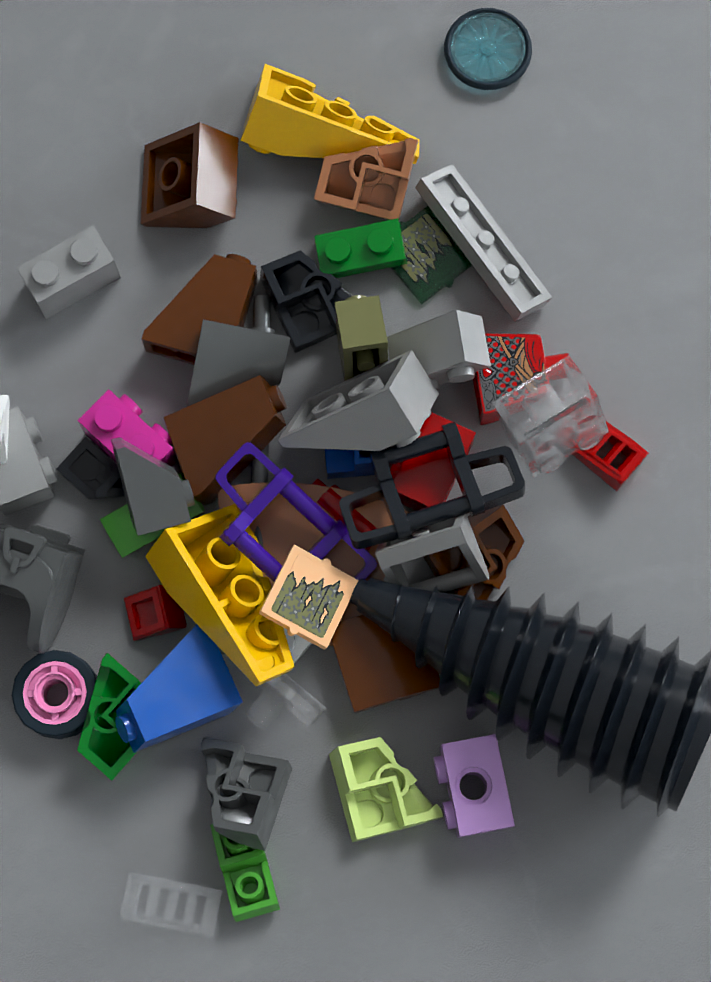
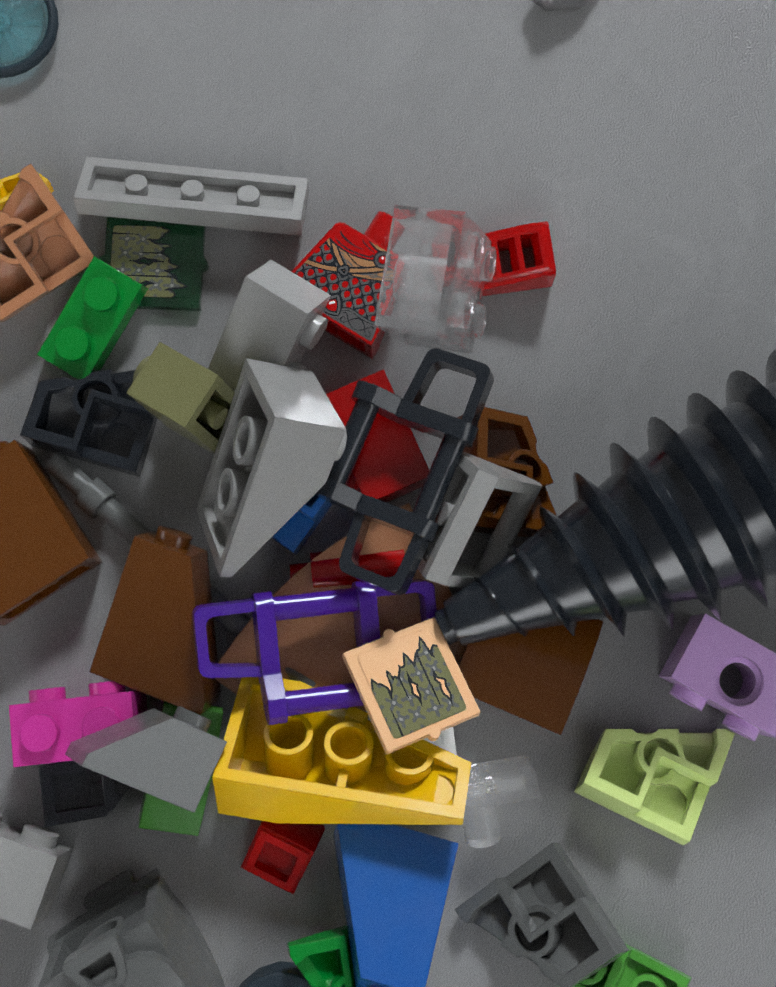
camera: 45 degrees left, 5 degrees up
(235, 355) = (90, 545): dark grey slope -> none

